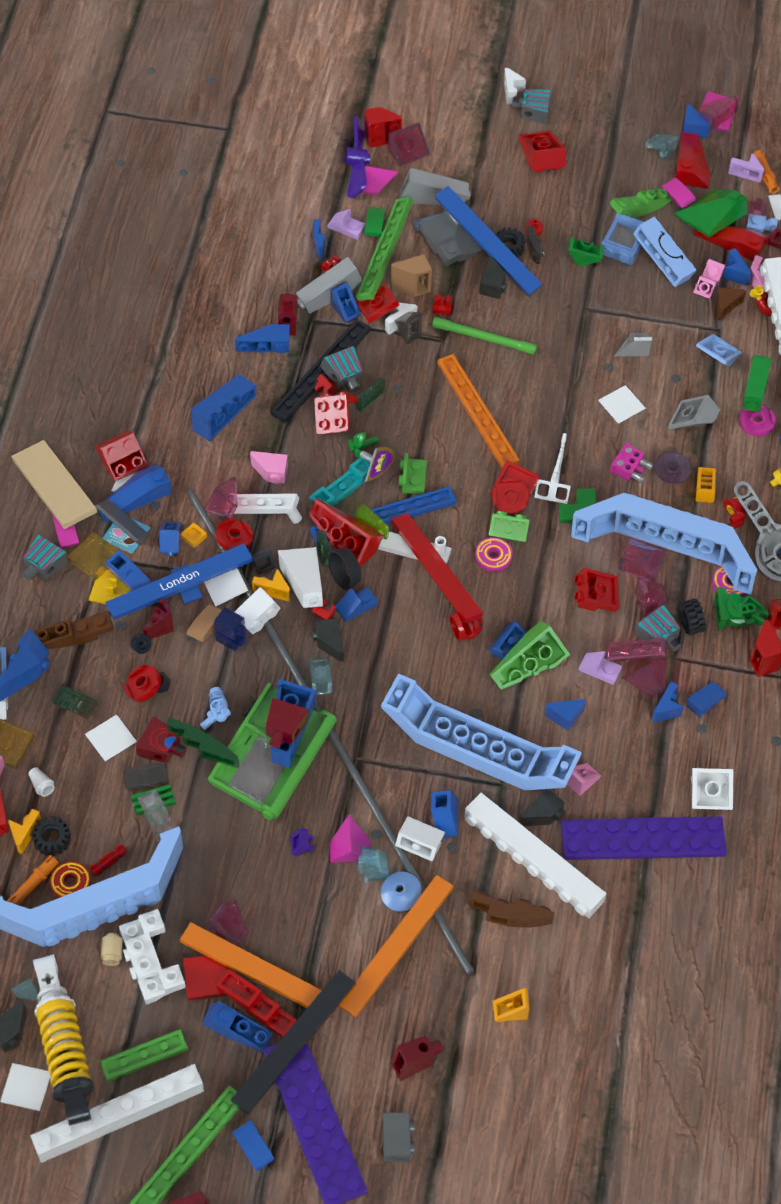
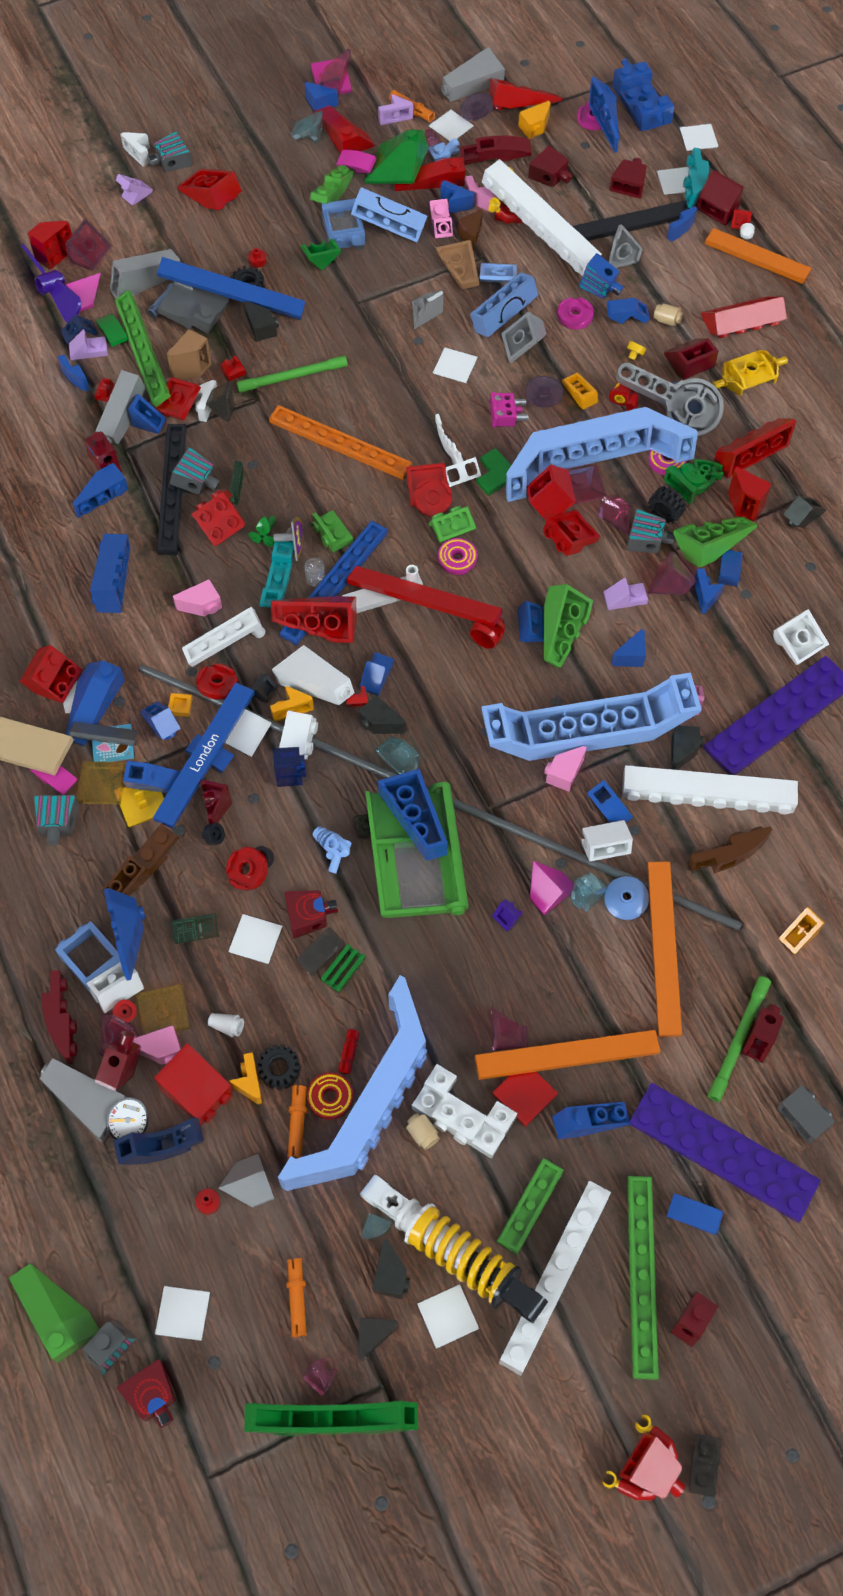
camera: 35 degrees left, 5 degrees up
(155, 813) = (360, 979): clear slope -> none
(204, 623) = (258, 776): medium nougat slope -> none
(208, 746) = (362, 883): dark green slope -> none
(224, 499) = (185, 654): clear pink slope -> none
(255, 1003) = (590, 1085): red slope -> none
(285, 722) = (420, 815): dark red torso -> none
(293, 1042) = (654, 1098): black tile -> none
(323, 547) = (311, 639): clear green tile -> none
(326, 384) = (186, 496): red tile -> none
(338, 571) = (340, 657): black tyre -> none
(350, 202) = (75, 326): none -> dark blue bracket
(356, 1069) = (721, 1081): none -> bright green piece
(365, 515) = (328, 589): clear neon green slope -> none
(372, 497) = (314, 571): none -> clear wheel
(437, 765) = (565, 768): none -> bright pink slope
(482, 118) = (133, 189): none -> lavender slope
(534, 245) = (271, 273): clear smoke slope -> none
(605, 549) = (551, 492): none -> red slope
(637, 650) = (647, 560): clear pink plate -> none
(695, 324) = (460, 263): none -> medium nougat wing
(699, 378) = (504, 304): none -> medium blue brick
(701, 667) = (709, 542): none -> bright green wedge
(756, 383) = (556, 281): green slope -> none

